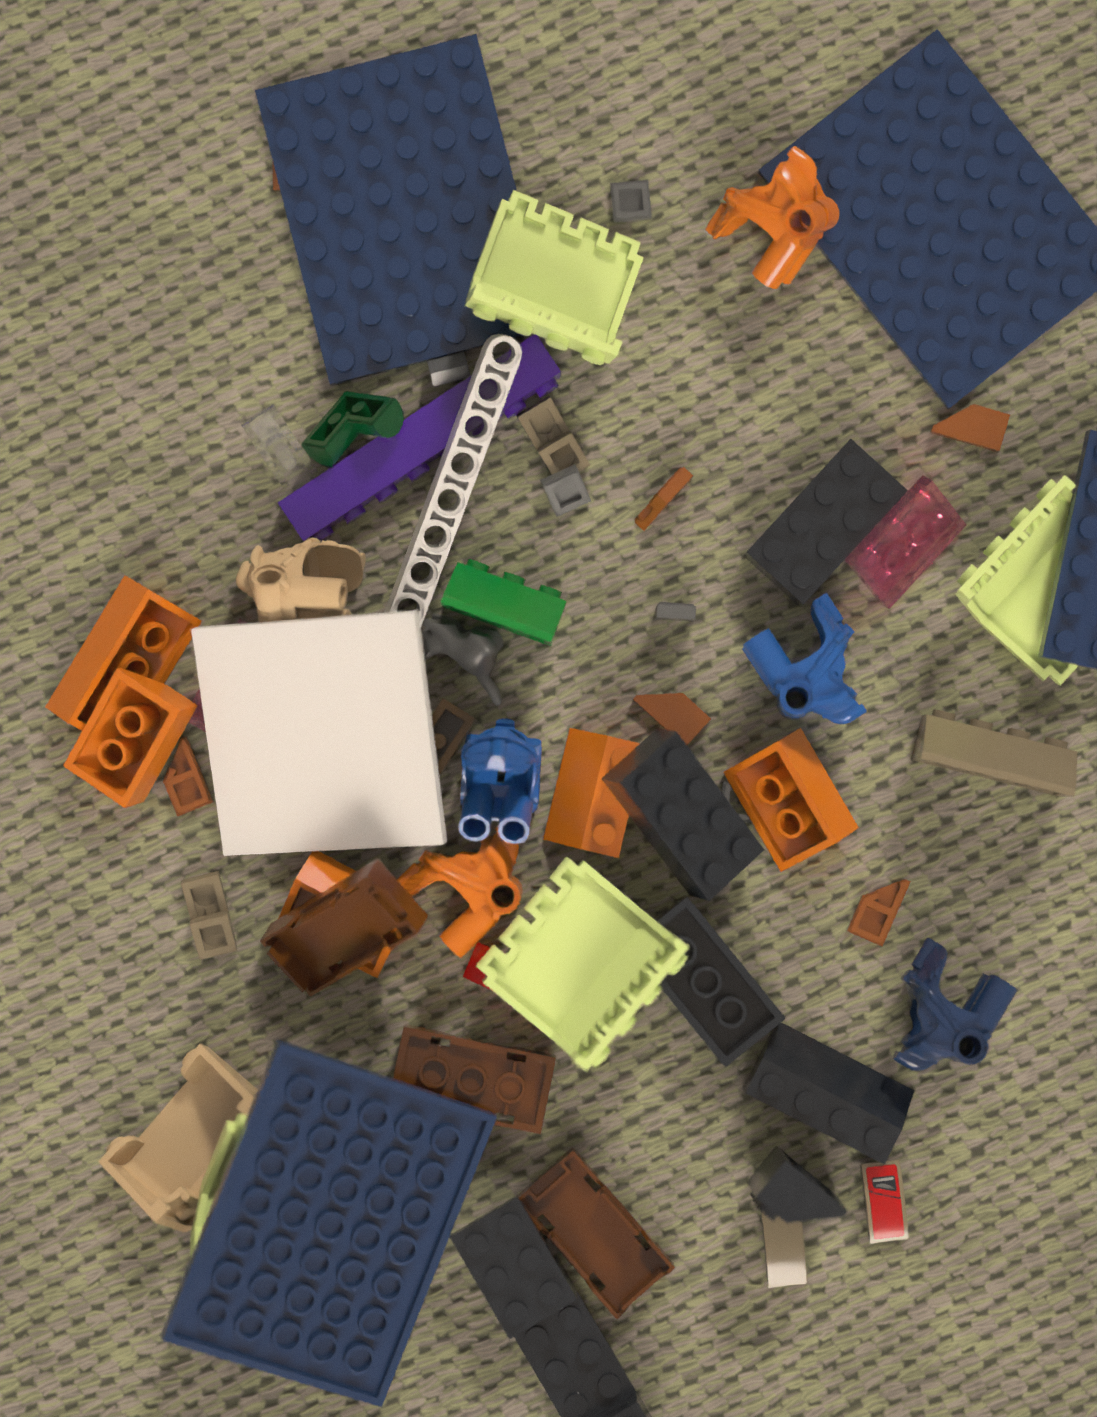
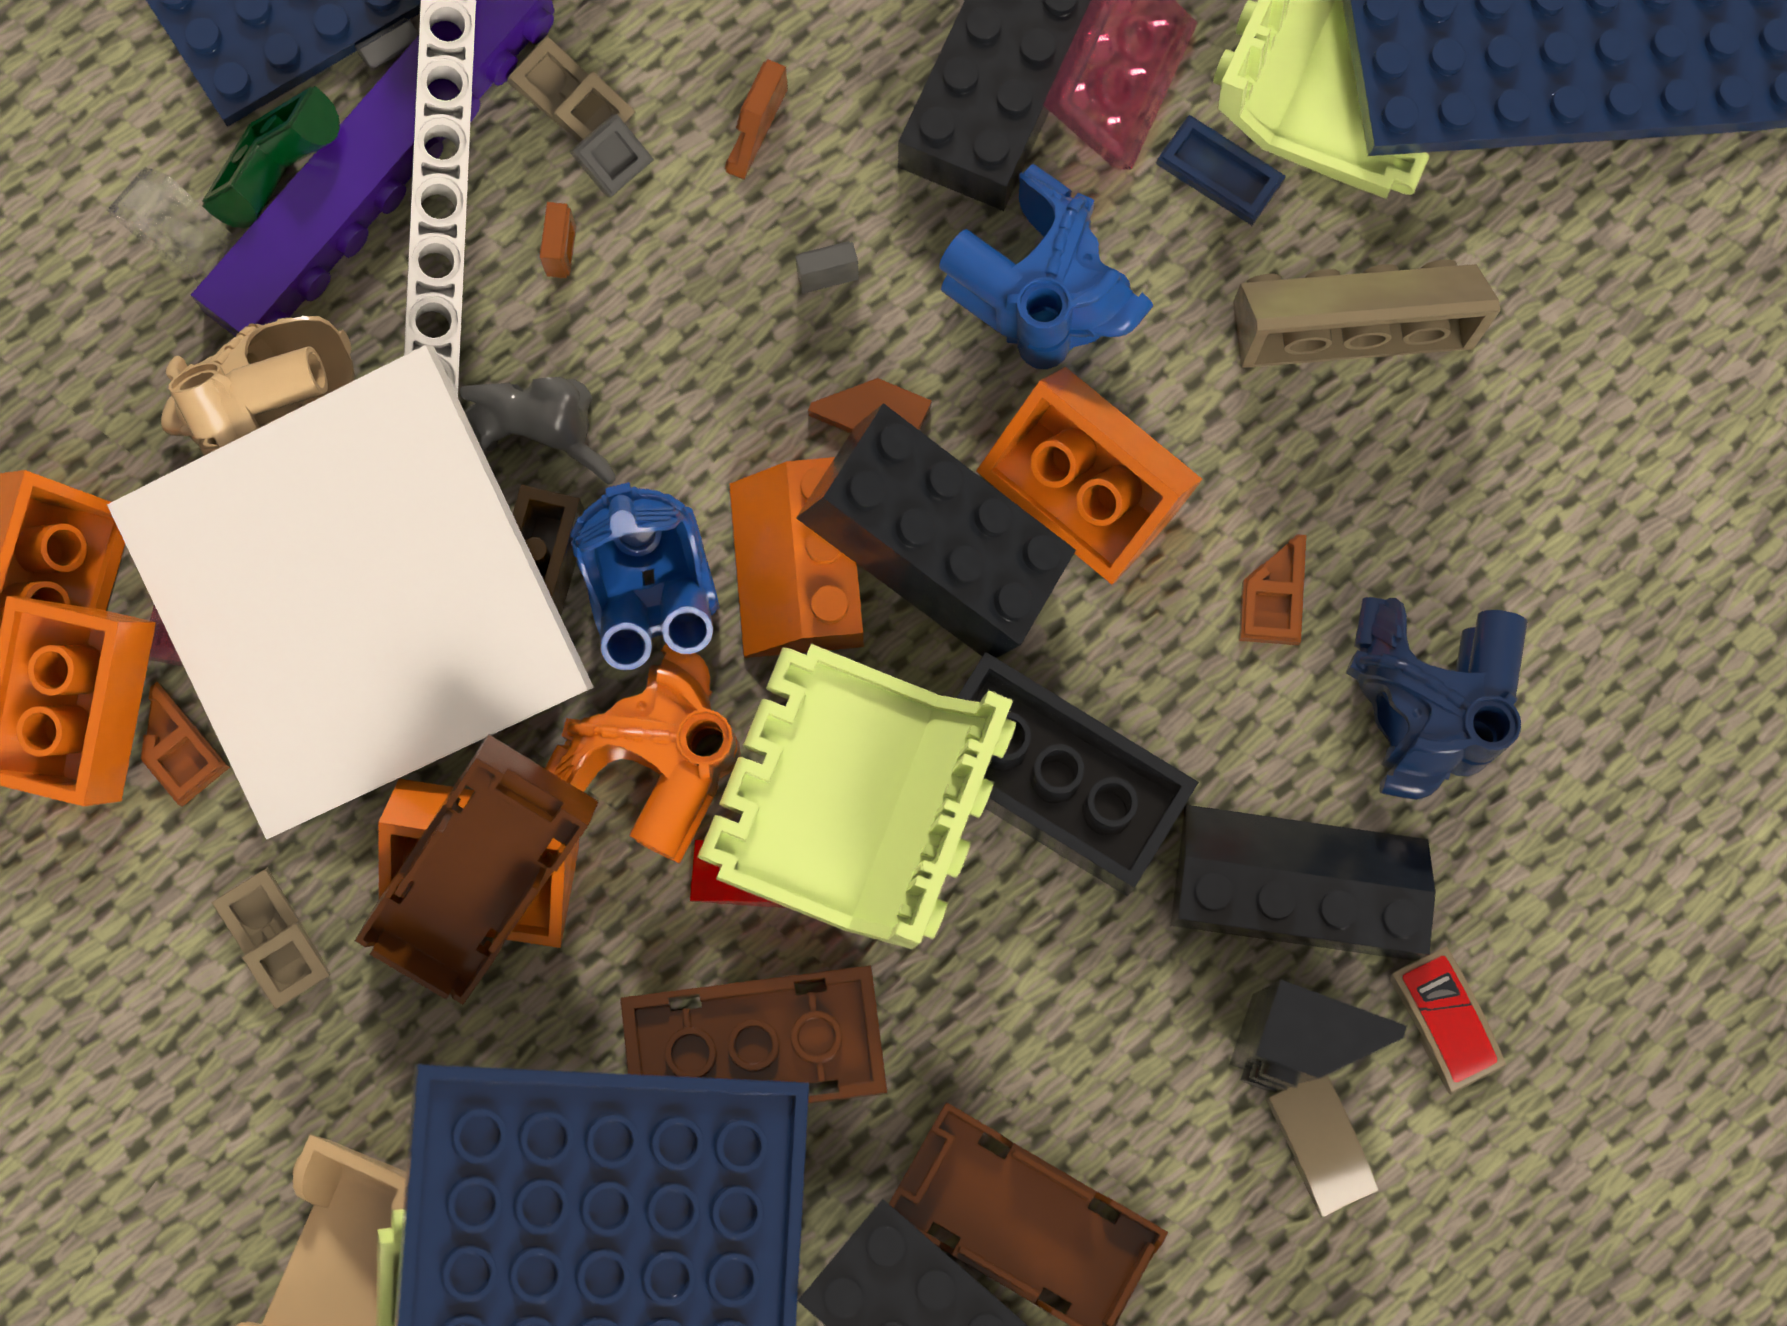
camera: 20 degrees left, 10 degrees down
(504, 601) = (570, 334): green slope -> none
(514, 537) = (558, 240): none -> dark orange tile
(945, 627) = (1220, 170): none -> dark blue tile

